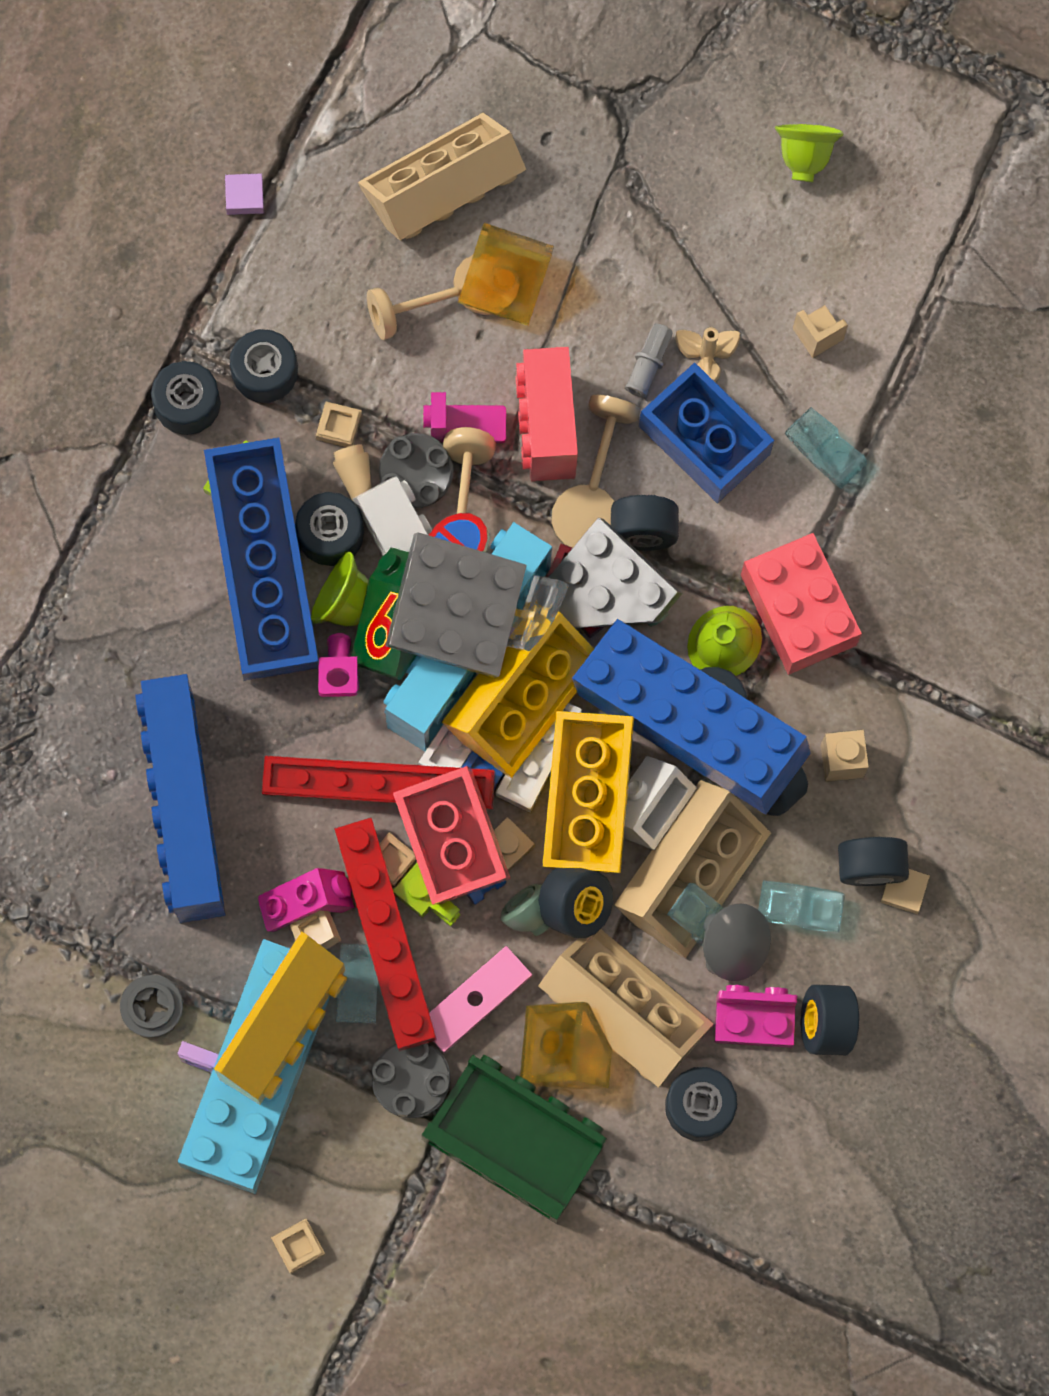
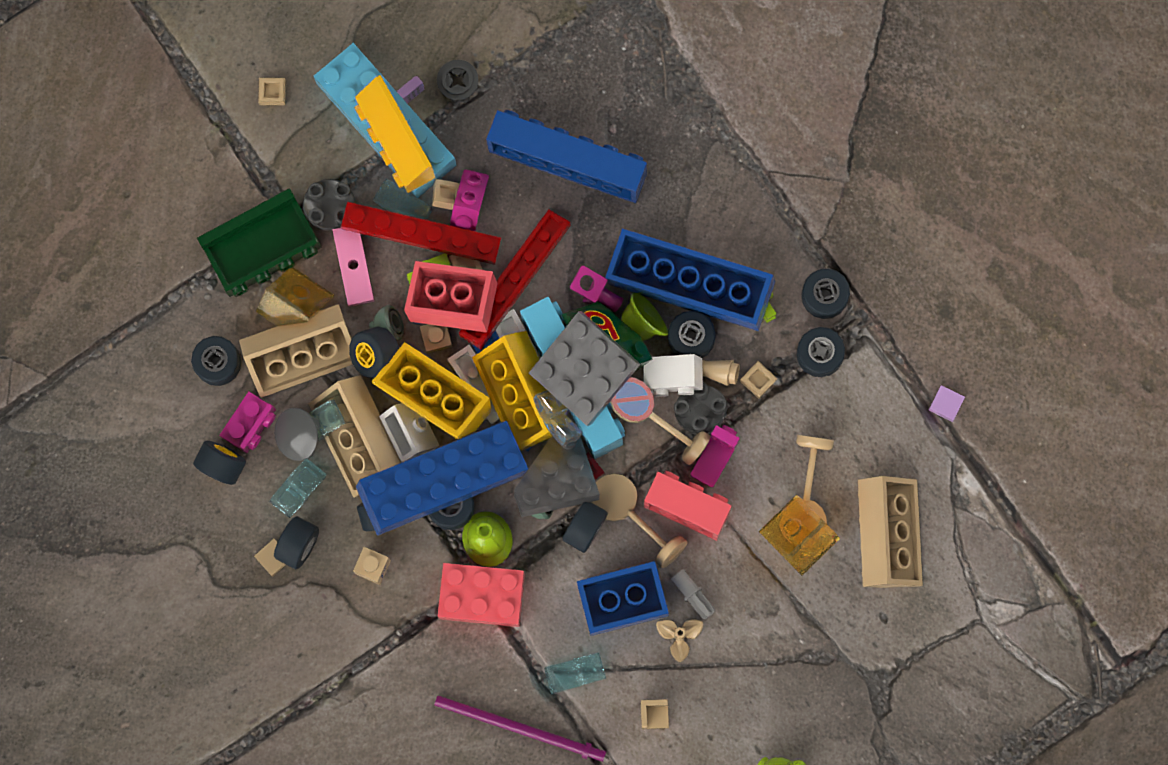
camera: 130 degrees right, 5 degrees up
(908, 386) = (585, 750): none -> magenta bar

